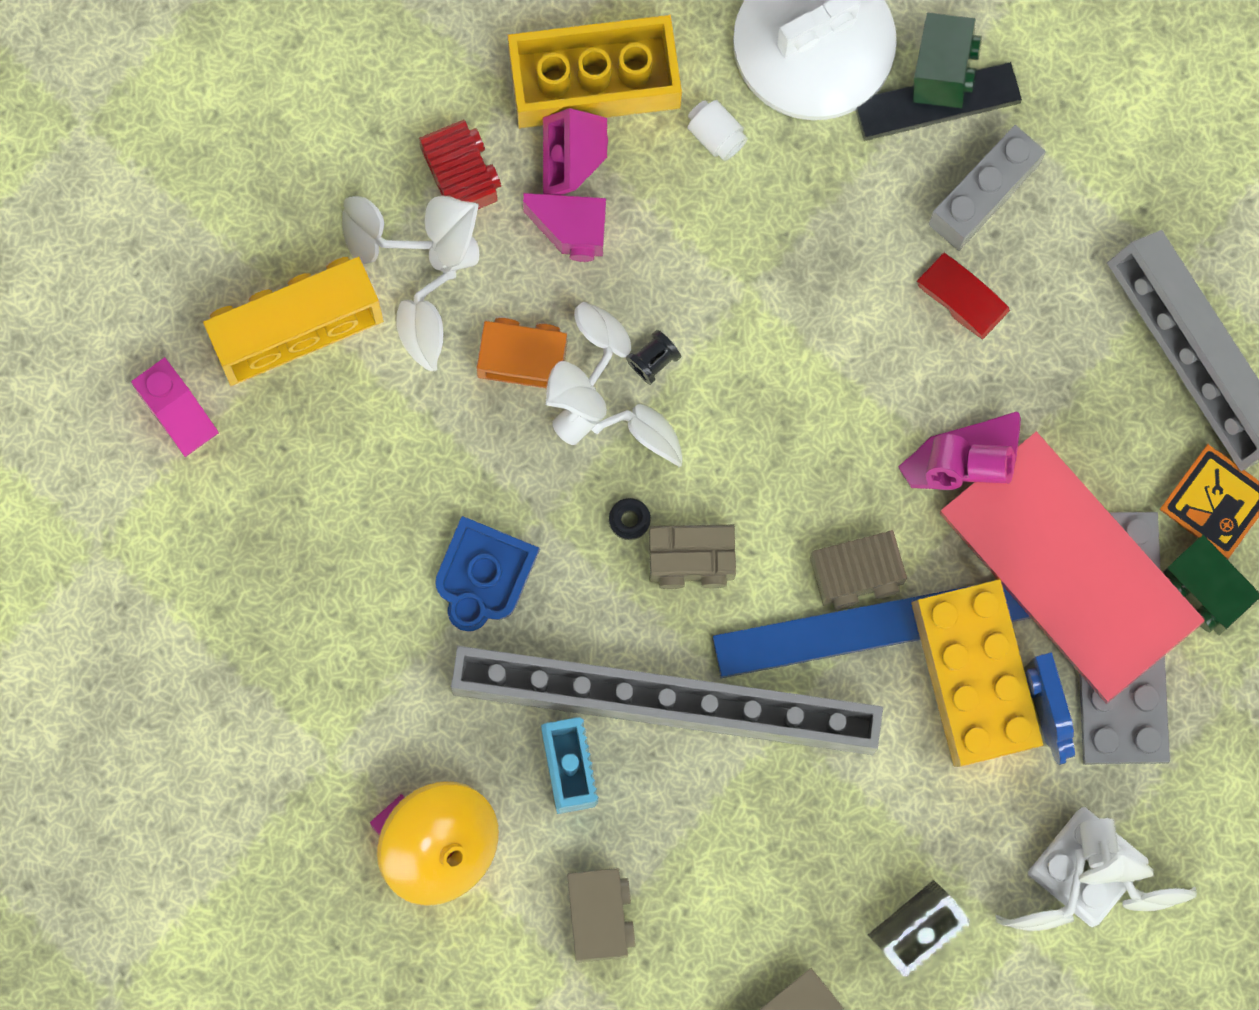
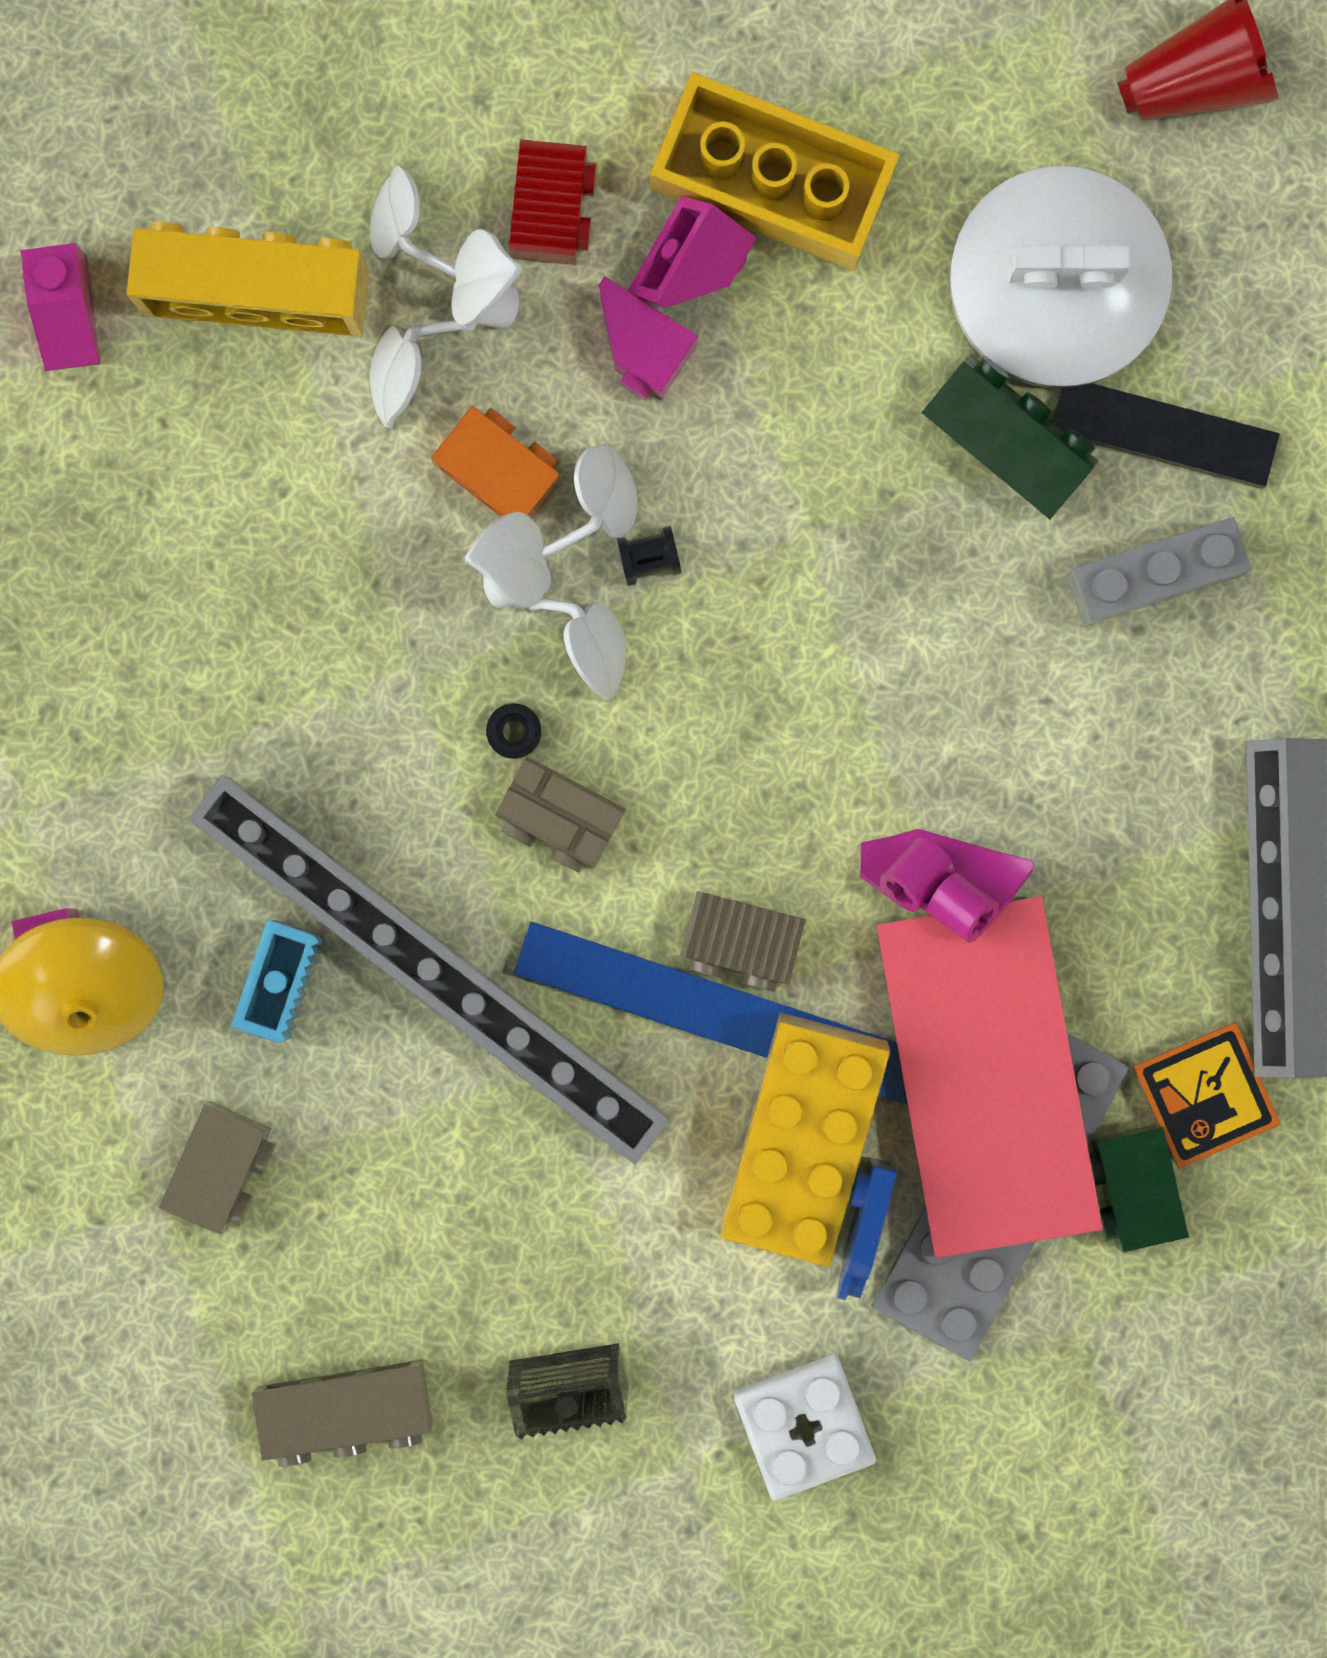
camera: 35 degrees right, 10 degrees up
(483, 574) = (309, 701): blue plate -> none
(716, 129) = (880, 322): white brick -> none
(843, 152) = (1011, 434): none -> dark green brick
(945, 60) = (1199, 389): dark green brick -> none
(964, 295) = (1055, 684): red slope -> none
(1108, 865) = (822, 1423): white plant -> none

